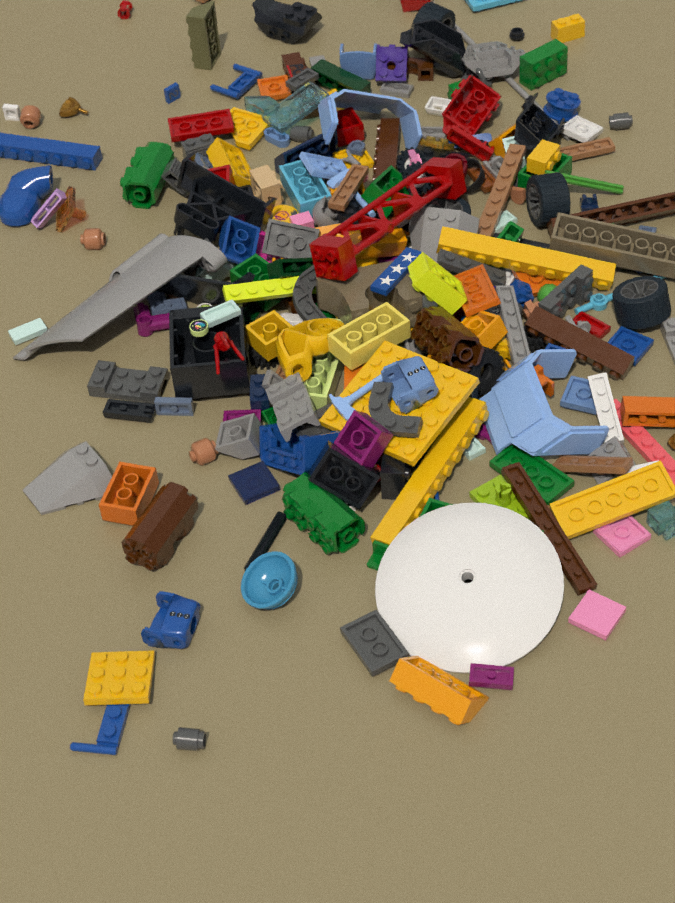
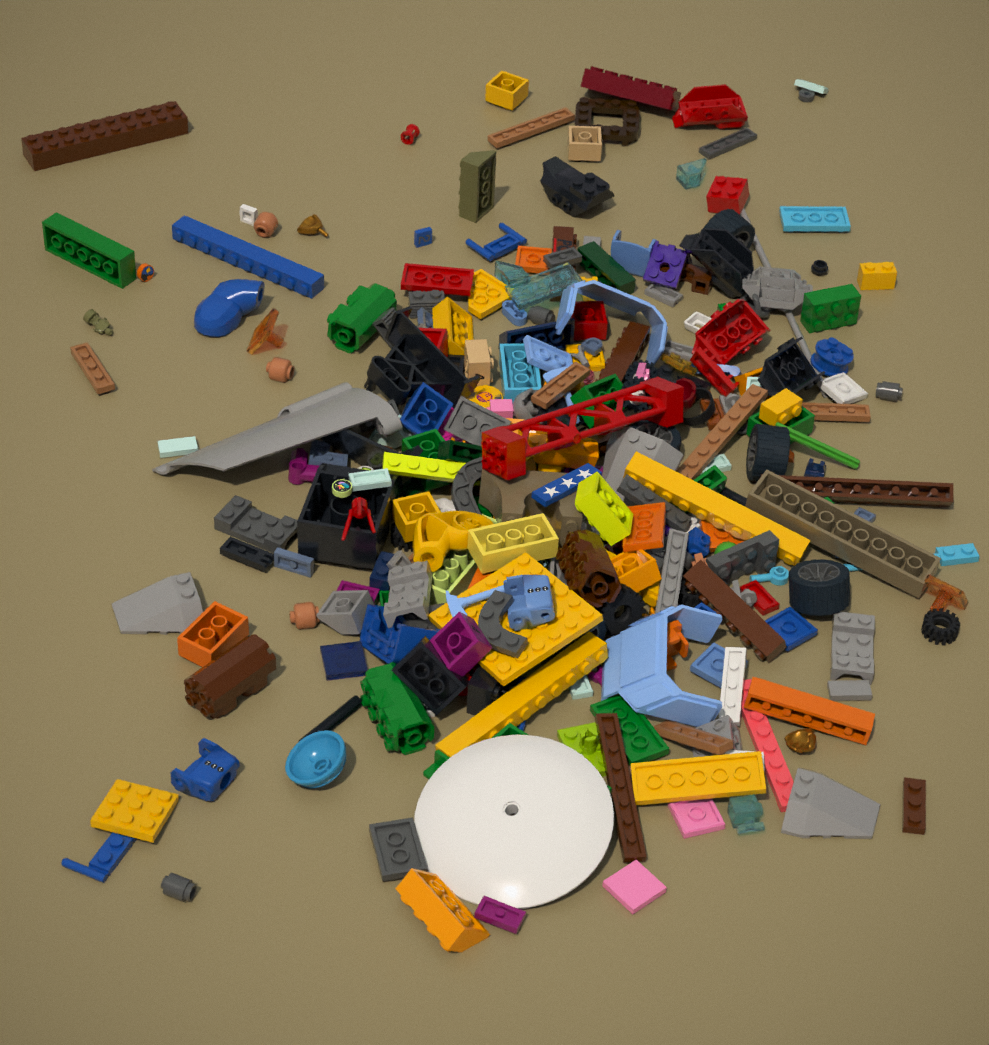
camera: 10 degrees right, 5 degrees down
(50, 209) = (247, 328): lavender piece -> none
(518, 195) = (741, 440): nougat tile -> none

